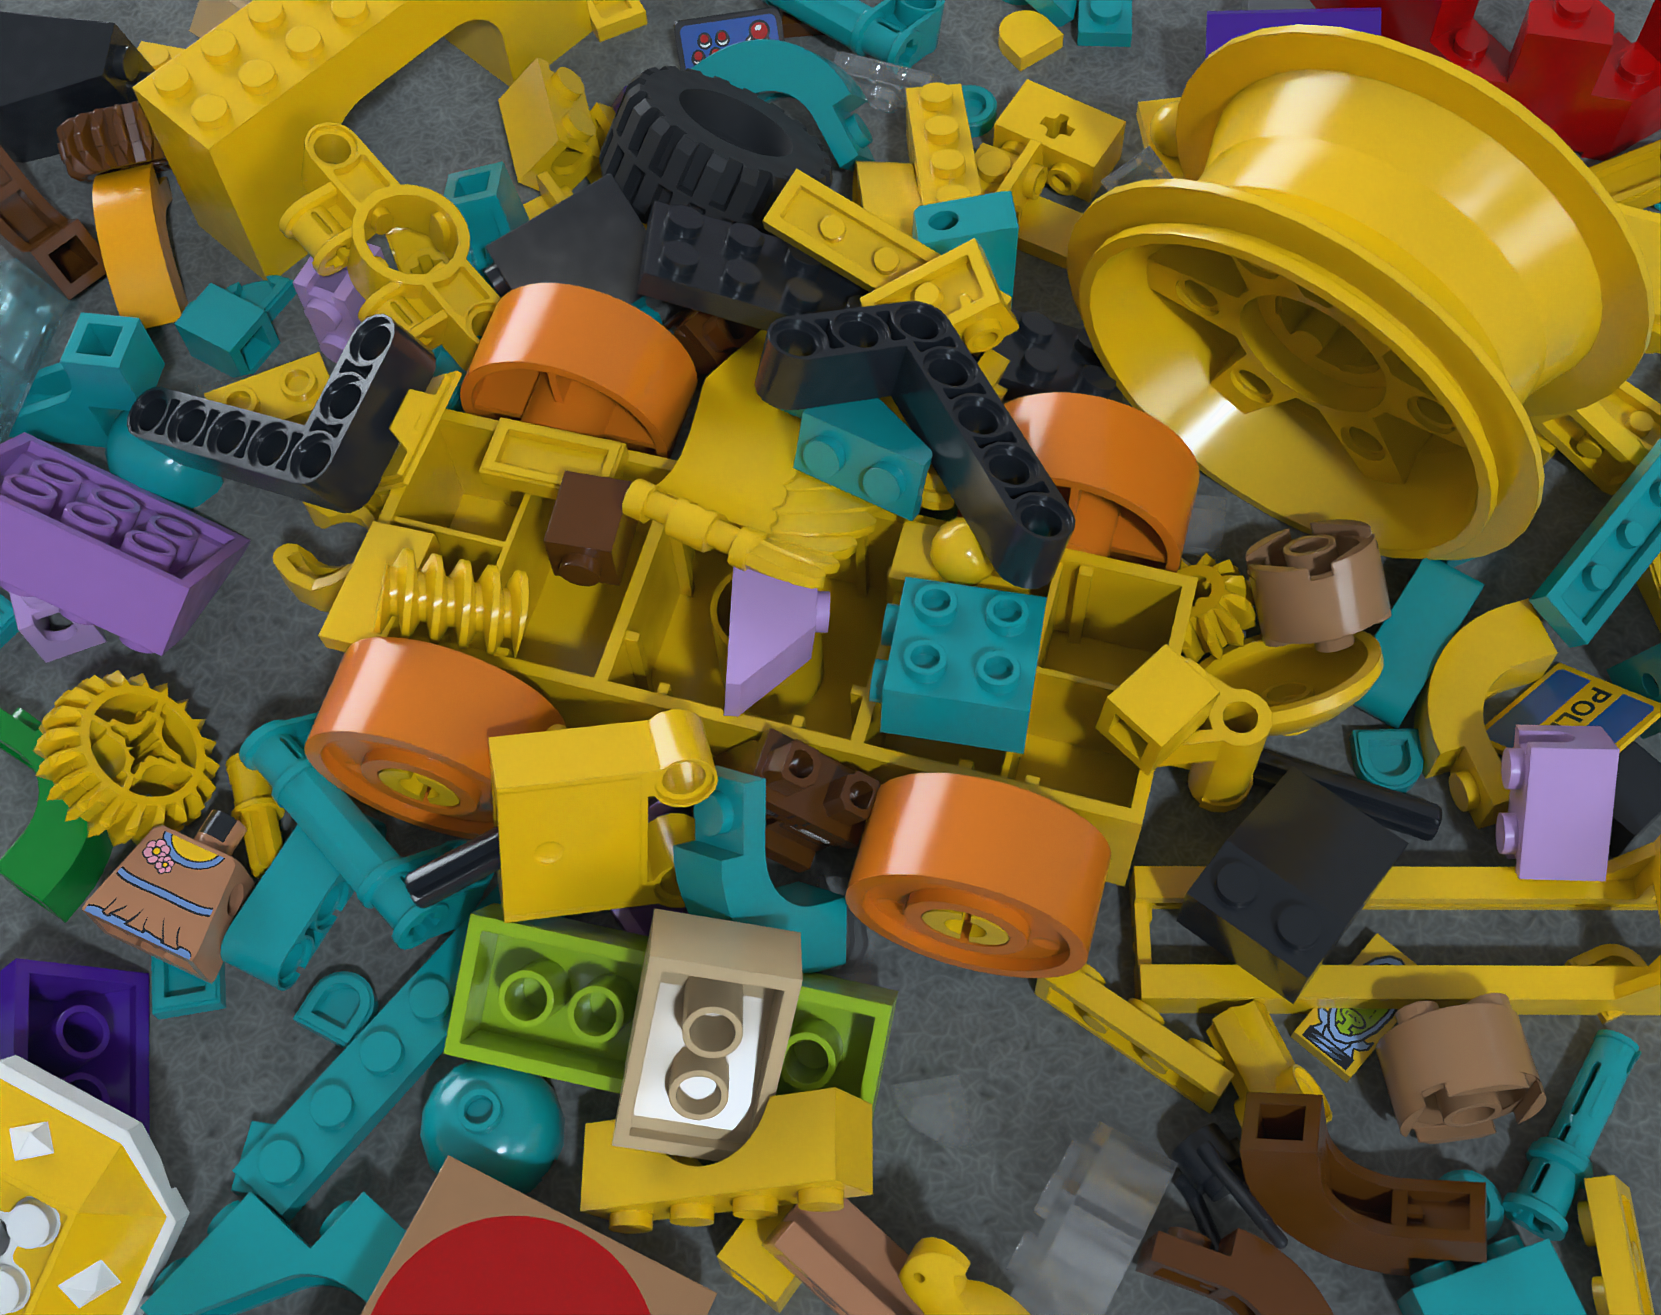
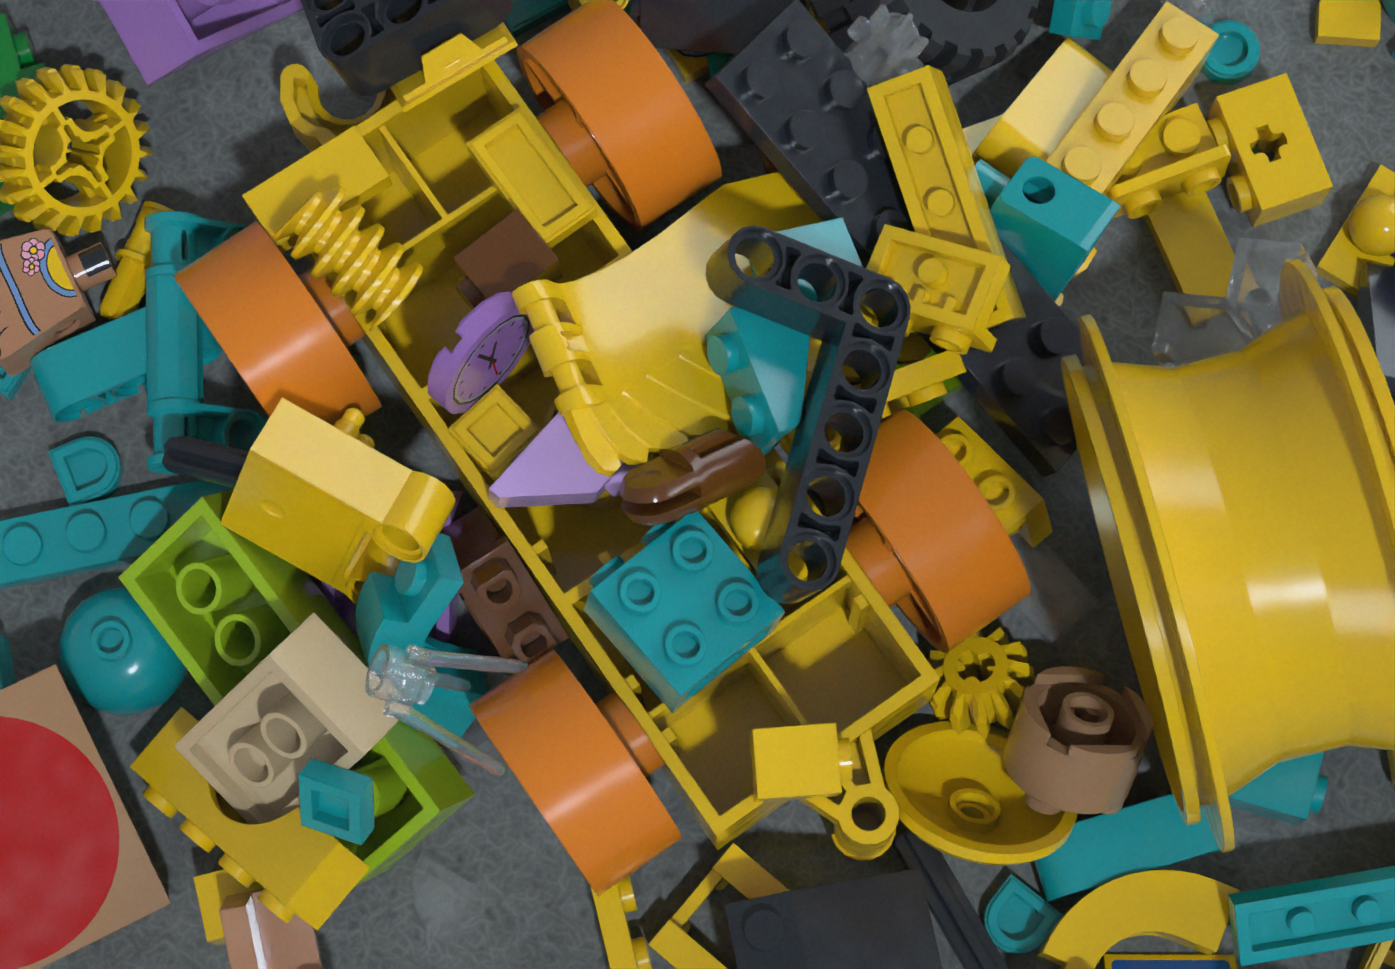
camera: 40 degrees right, 15 degrees up
(631, 596) = (489, 350): none -> medium lavender tile
(687, 660) = (494, 432): none -> yellow tile
(737, 185) = (884, 46): none -> clear gear
(784, 900) = (409, 678): none -> clear plant
(805, 1051) = (336, 801): none -> teal tile
(884, 549) = (690, 477): none -> reddish brown arm

